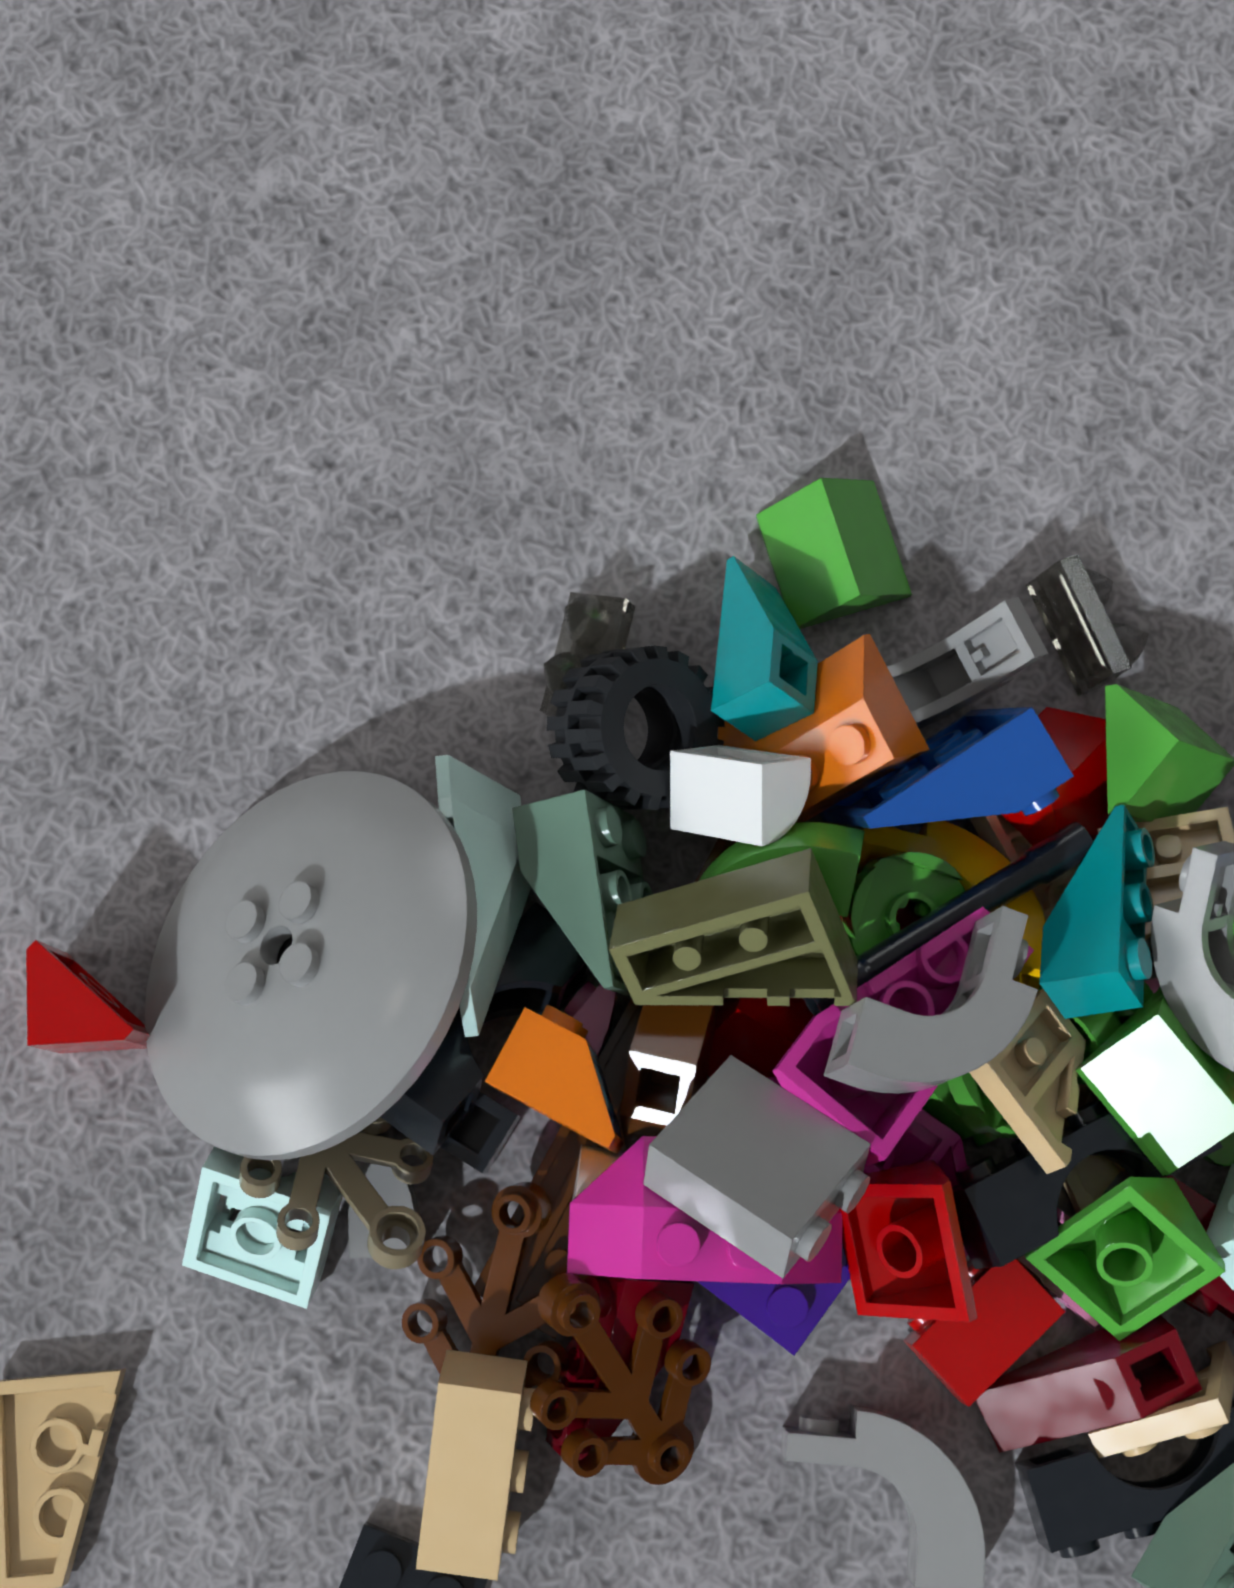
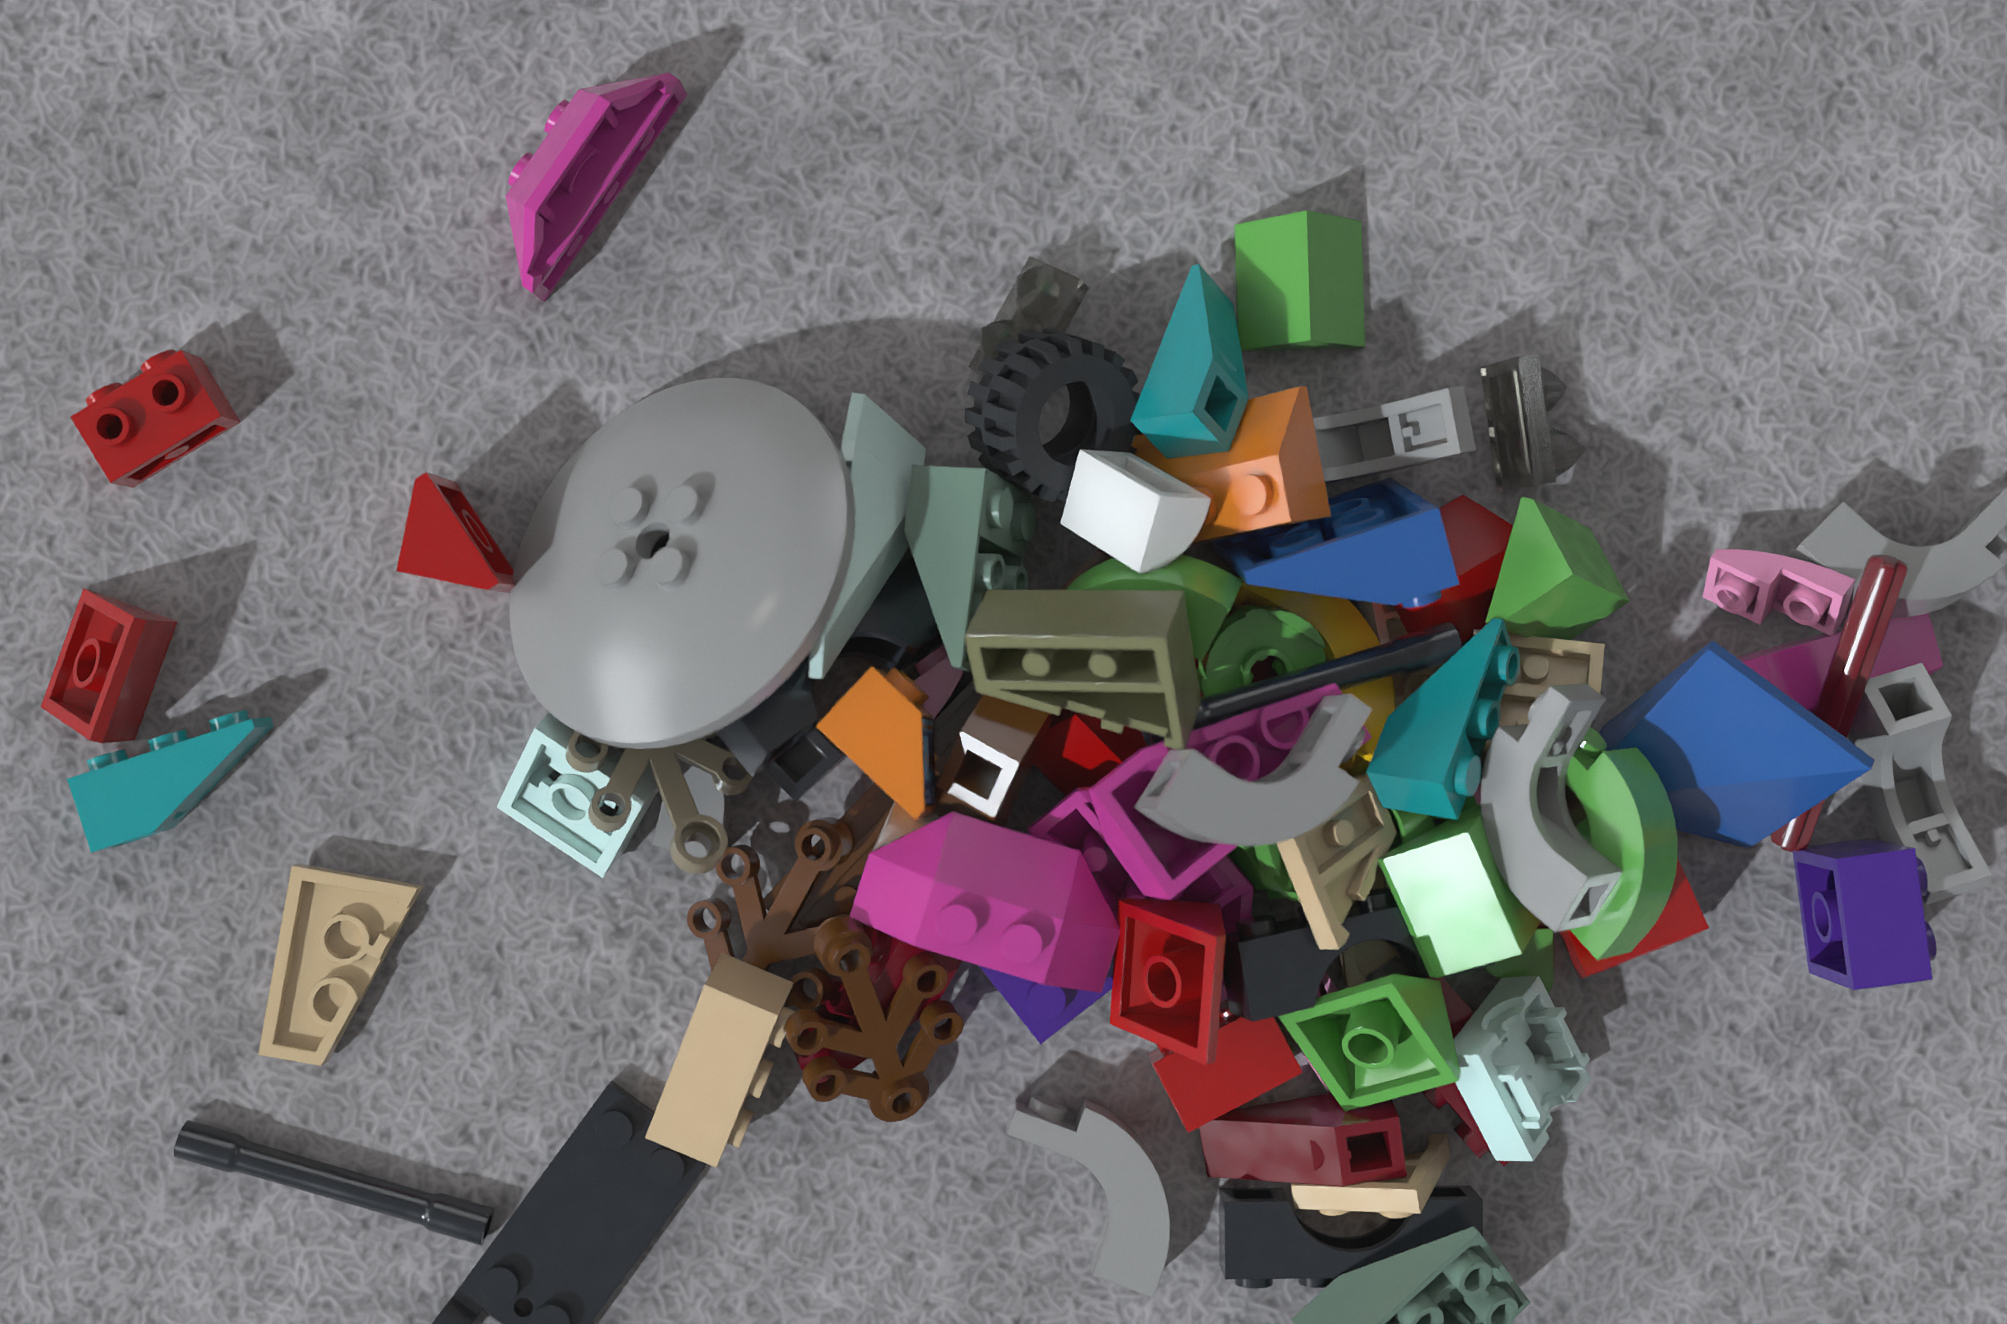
camera: 20 degrees right, 10 degrees up
(122, 622) = (581, 170): none -> dark pink wedge
(758, 1166) = (1050, 873): light grey brick -> none

